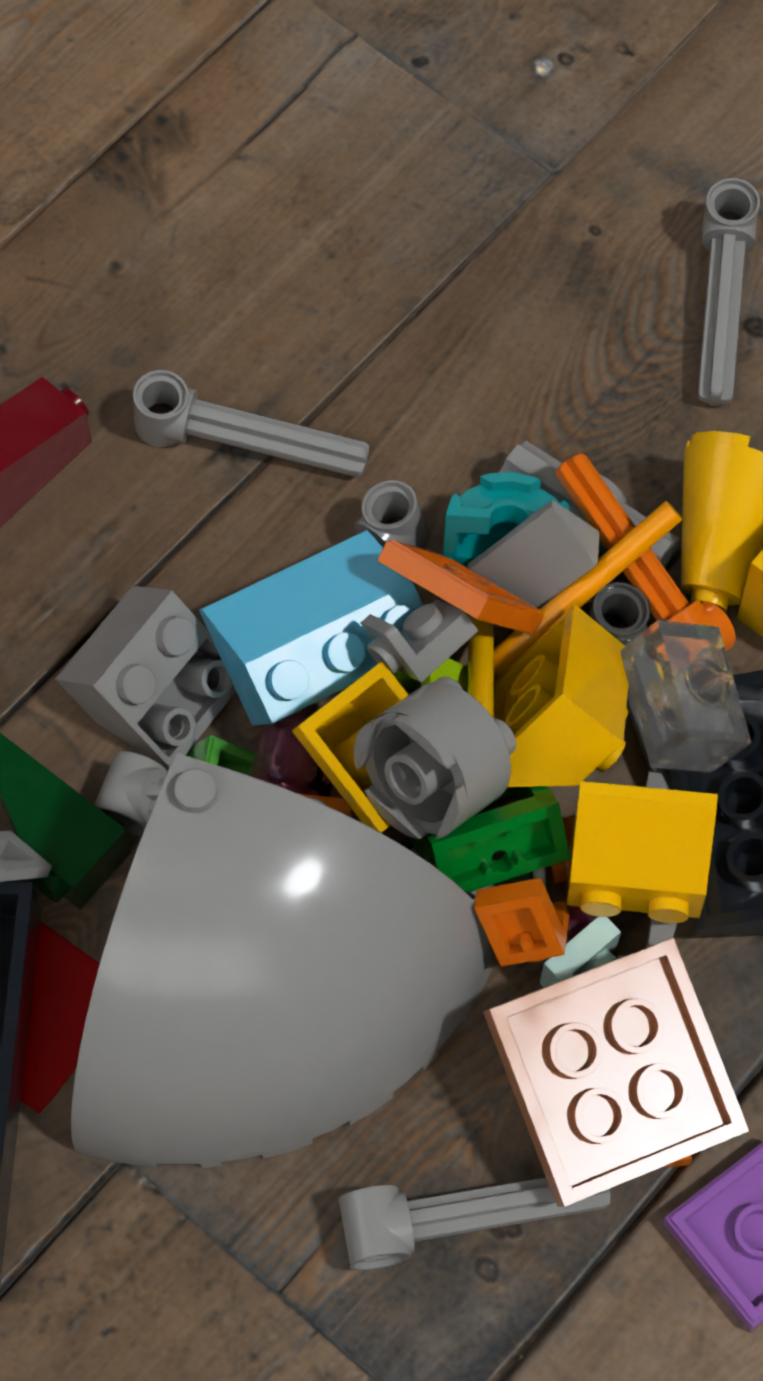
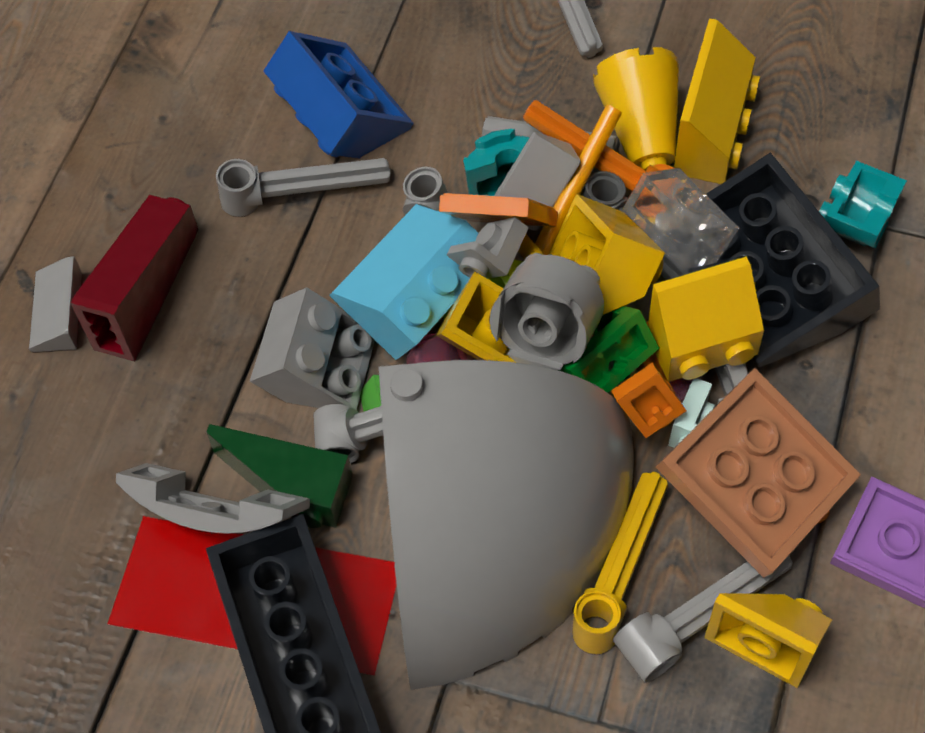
camera: 20 degrees left, 5 degrees down
(346, 328) = (335, 95): none -> blue slope
(390, 1114) = (607, 595): none -> yellow axle
(534, 1276) = (769, 631): none -> yellow slope

